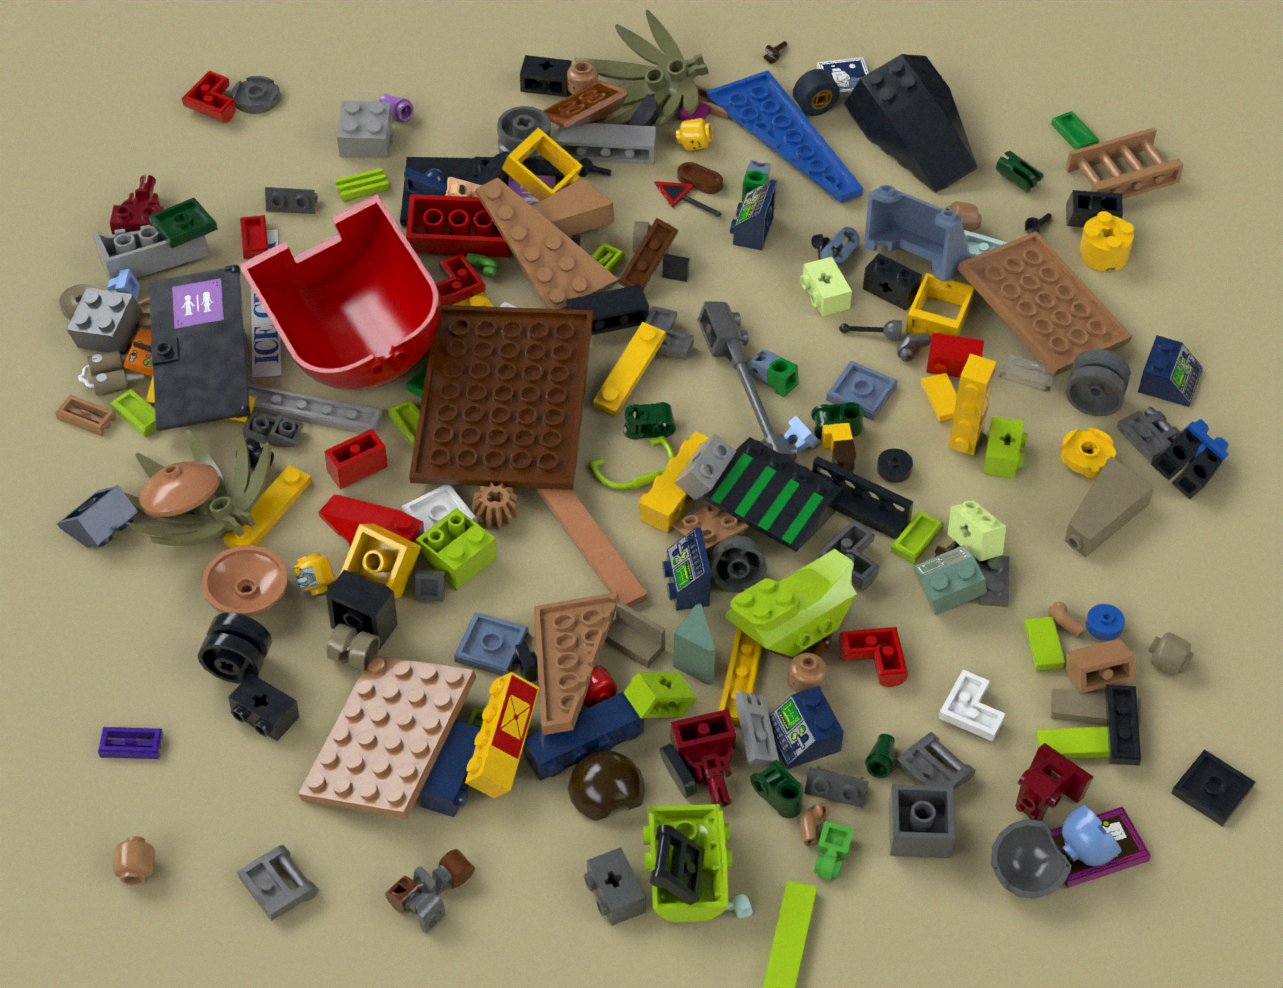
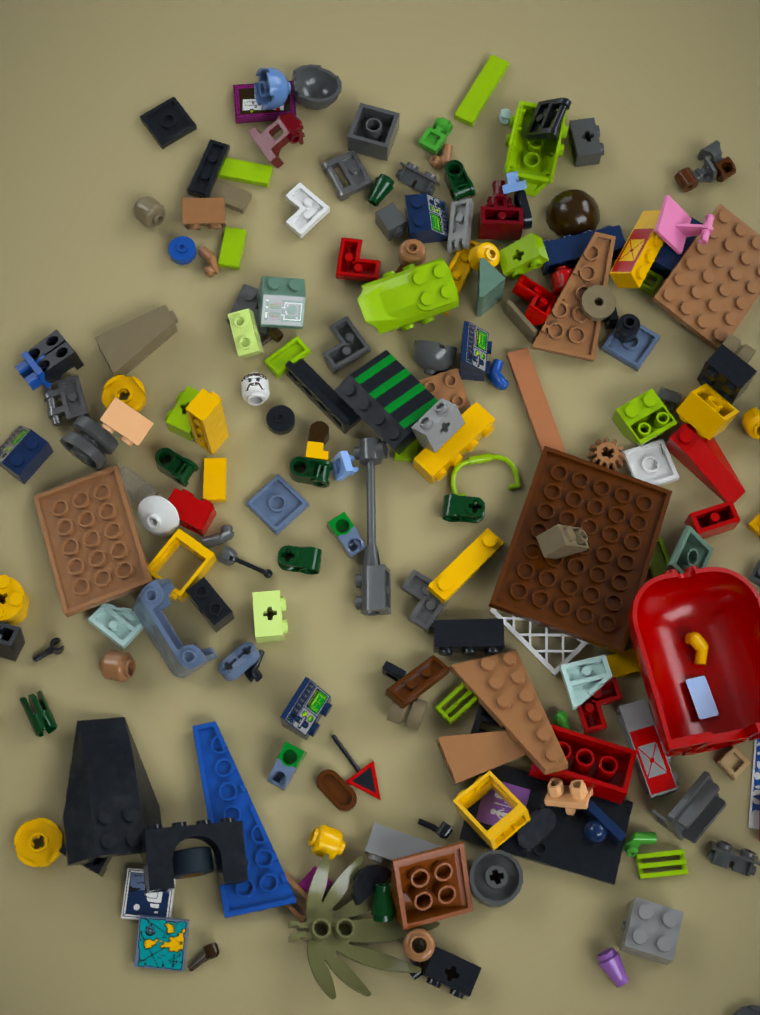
camera: 165 degrees left, 20 degrees up
(342, 198) = (694, 811): none -> dark grey piece
(342, 310) = (702, 697): none -> light blue sticker
(352, 349) = (700, 645): none -> yellow arm
(382, 413) = (689, 551): none -> sand green slope
(395, 189) = (636, 839): none -> bright green arm
(461, 758) = (675, 226): none -> bright pink plate
(473, 287) = (585, 678): none -> light aqua wing
(500, 633) = (627, 328): none -> black brick
(526, 375) = (562, 541): none -> dark tan slope
(556, 650) = (596, 312): none -> dark tan piece
(621, 655) = (539, 299): none -> red brick
(629, 106) = (382, 904): none -> dark green cone
(649, 561) = (496, 377): none -> blue arm
(698, 788) = (513, 183): none -> light blue tile
(711, 684) = (484, 250): none -> yellow head
(796, 104) = (223, 837): none -> black arch
(813, 340) = (303, 559): none -> dark green piece
(817, 48) = (161, 943): none -> tile
(852, 713) = (391, 222): none -> dark grey brick
(939, 487) = (255, 388): none -> white head
(976, 93) = (26, 848): none -> yellow plate
(987, 333) = (158, 516): none -> white dish
(1003, 397) = (179, 467): none -> dark green piece
(1064, 391) = (125, 421): none -> light nougat brick

